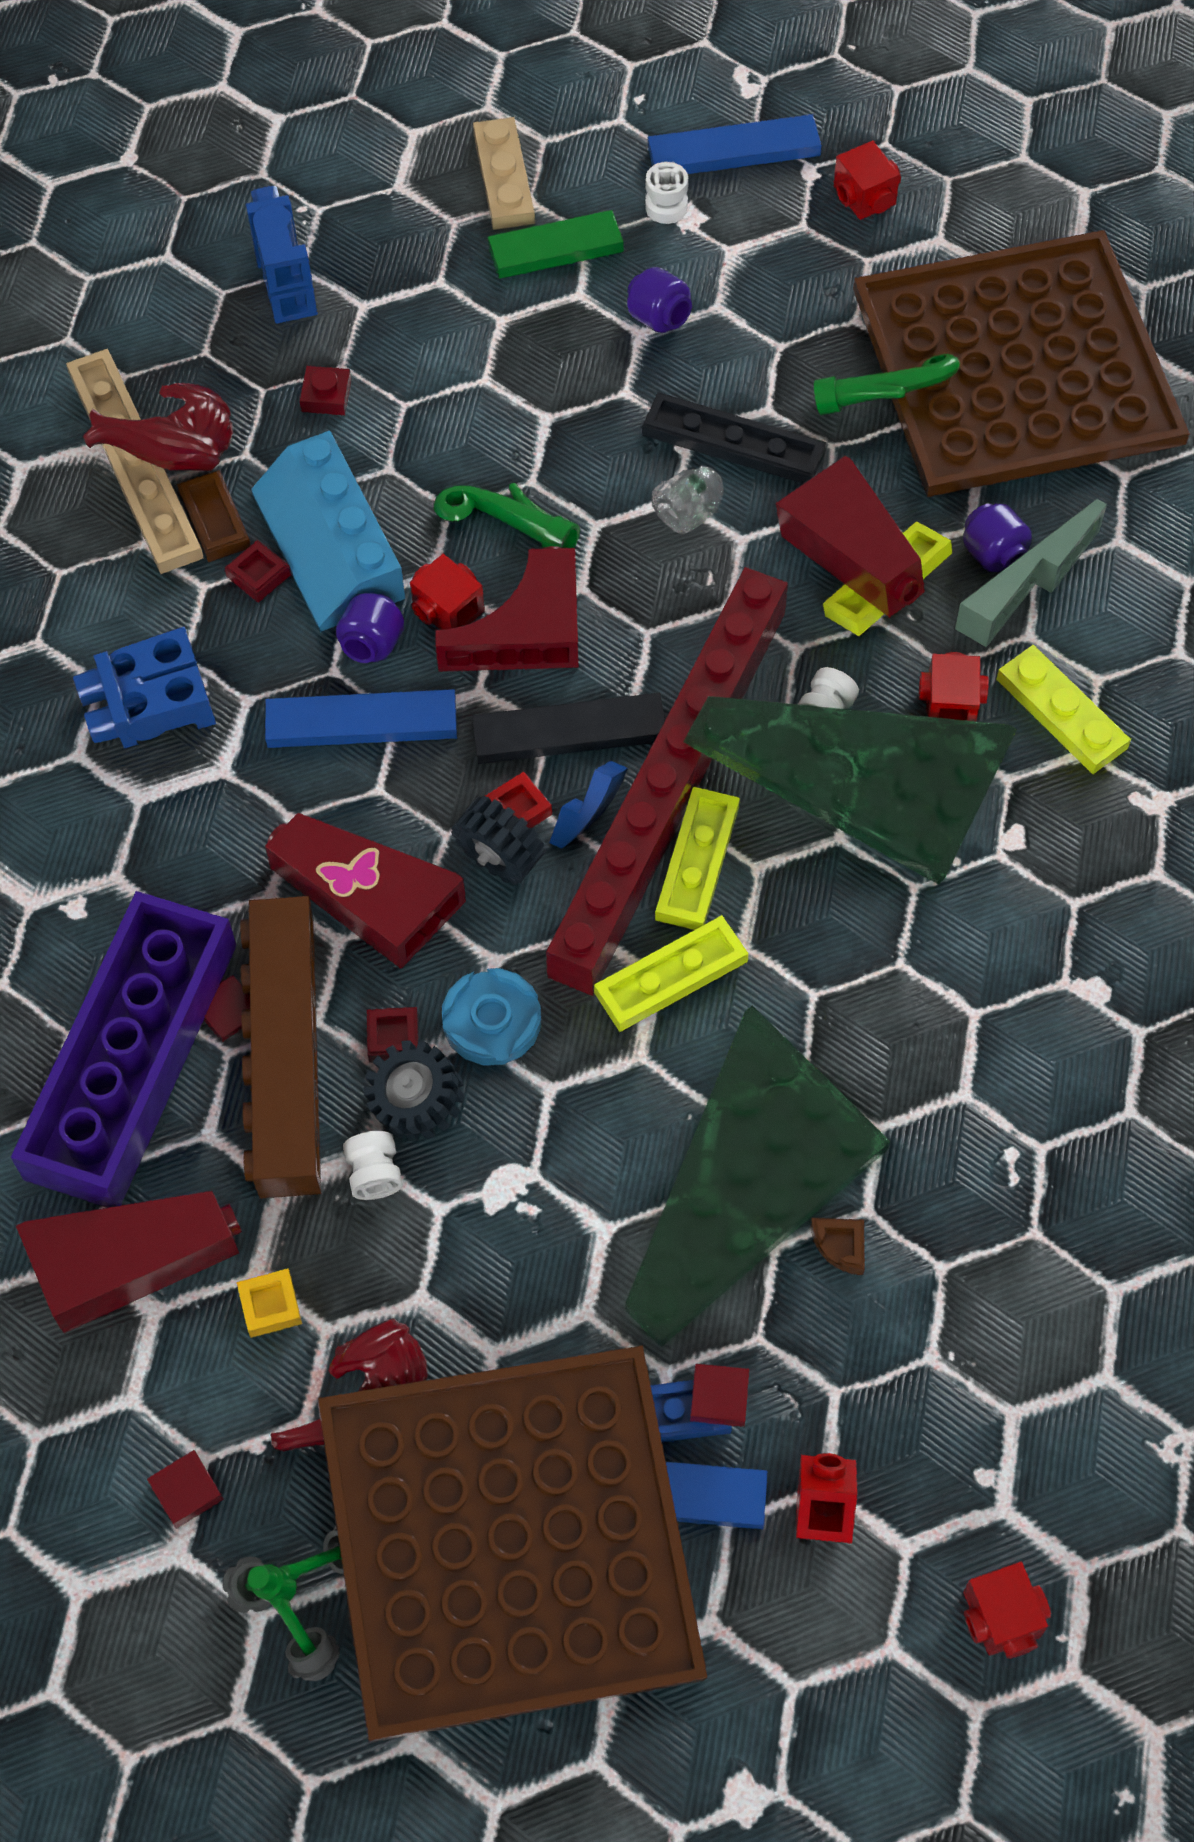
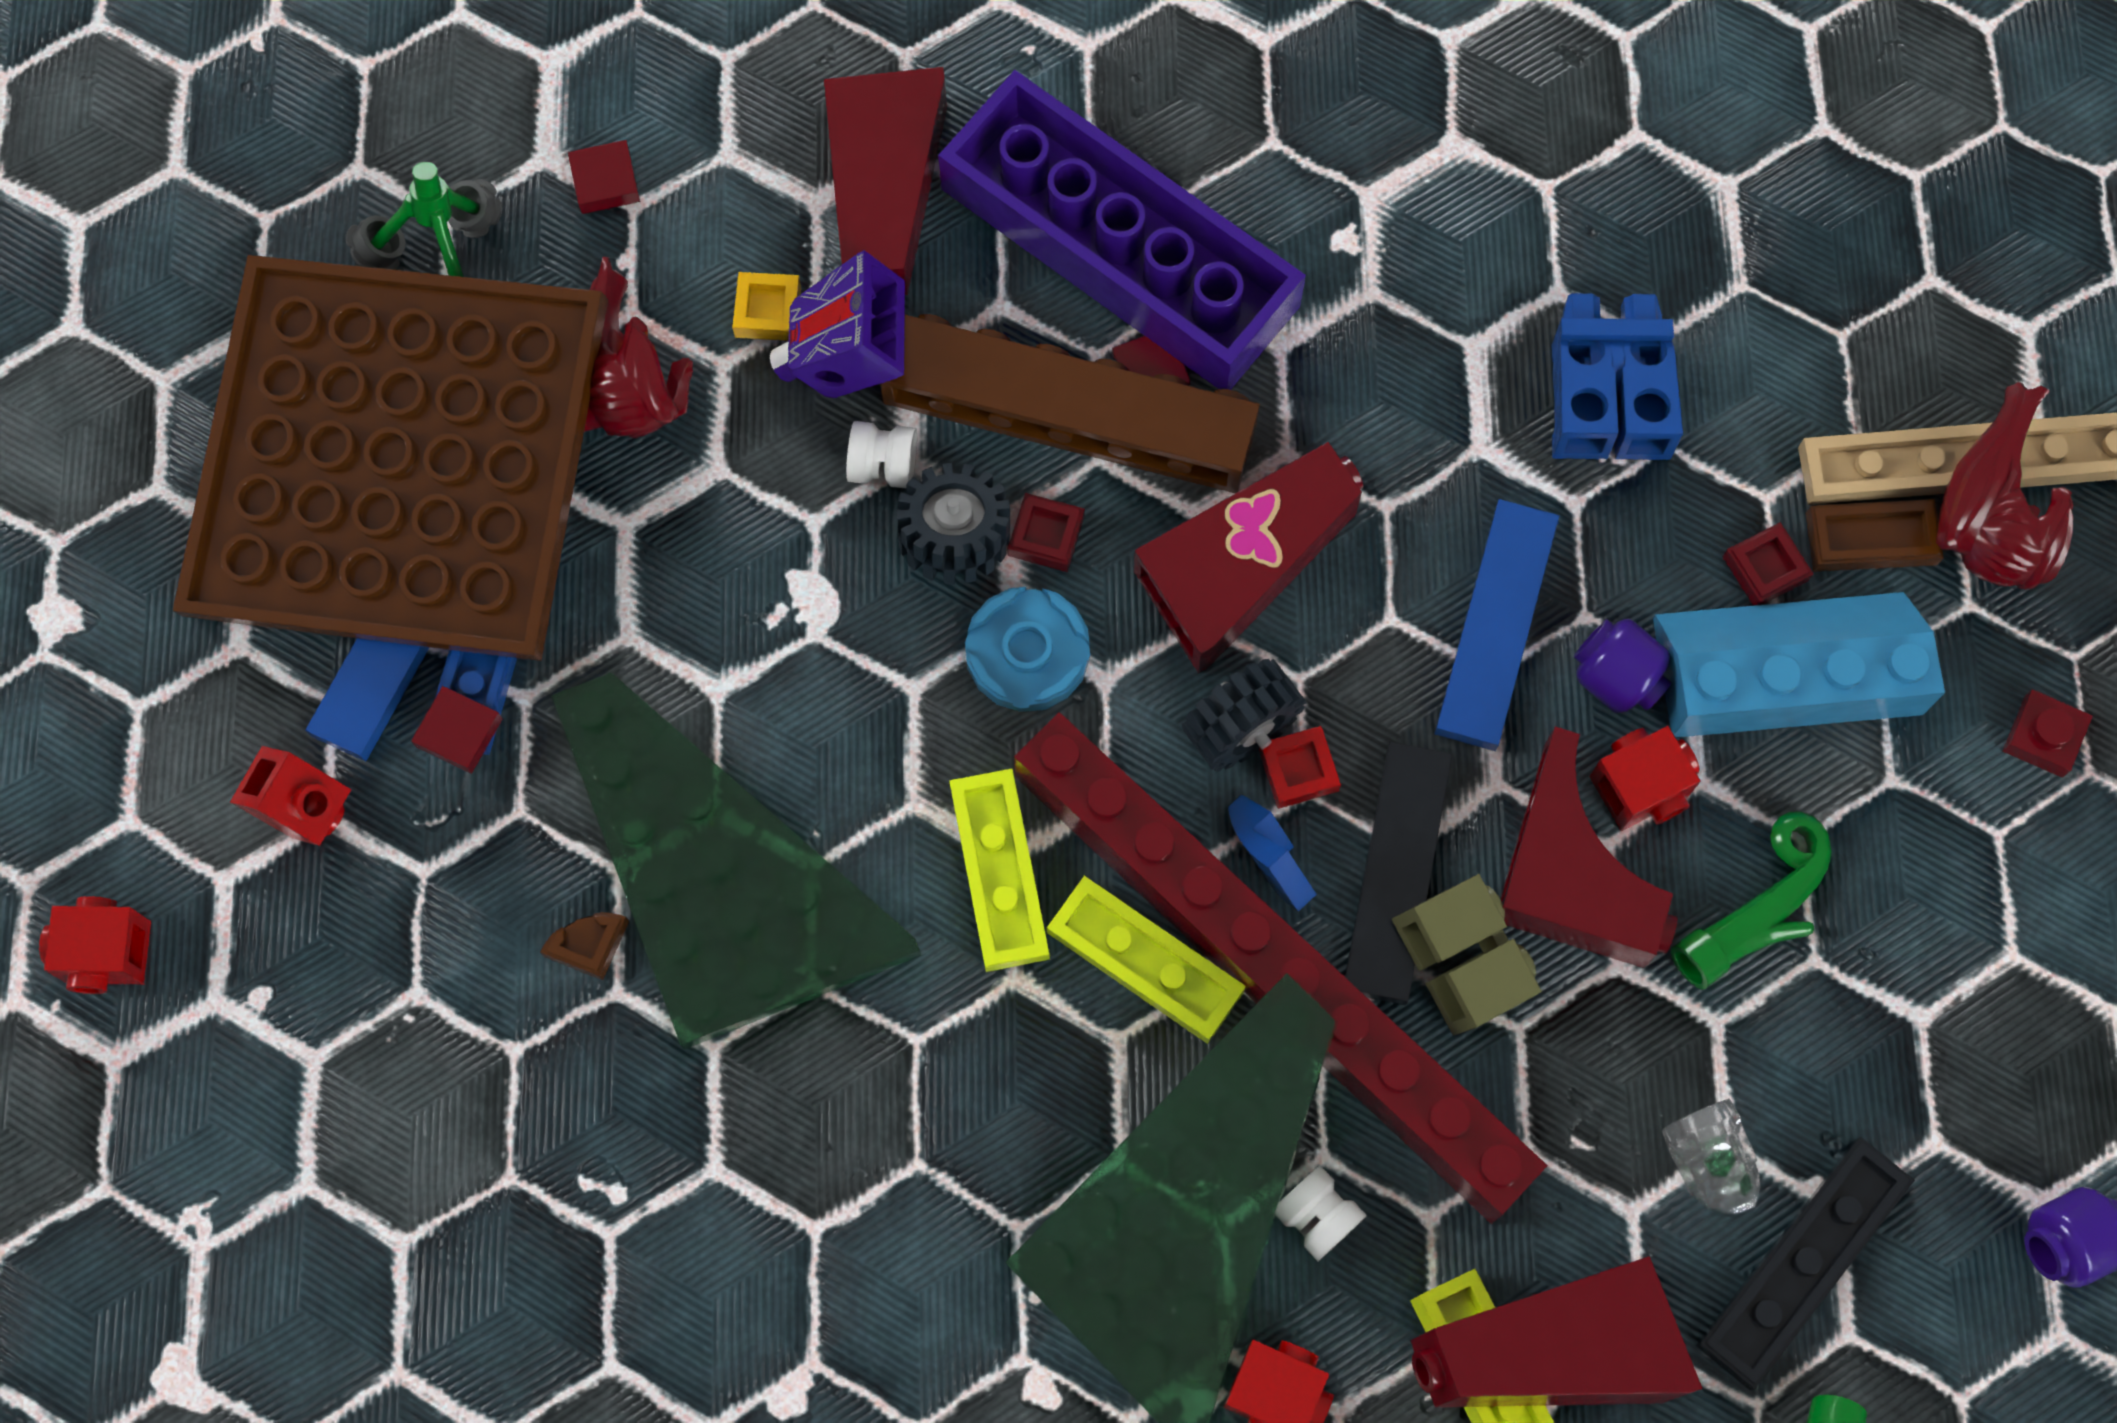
camera: 110 degrees right, 10 degrees up
(283, 1216) = (846, 330): none -> dark purple torso
(623, 646) = (1484, 984): none -> olive piece

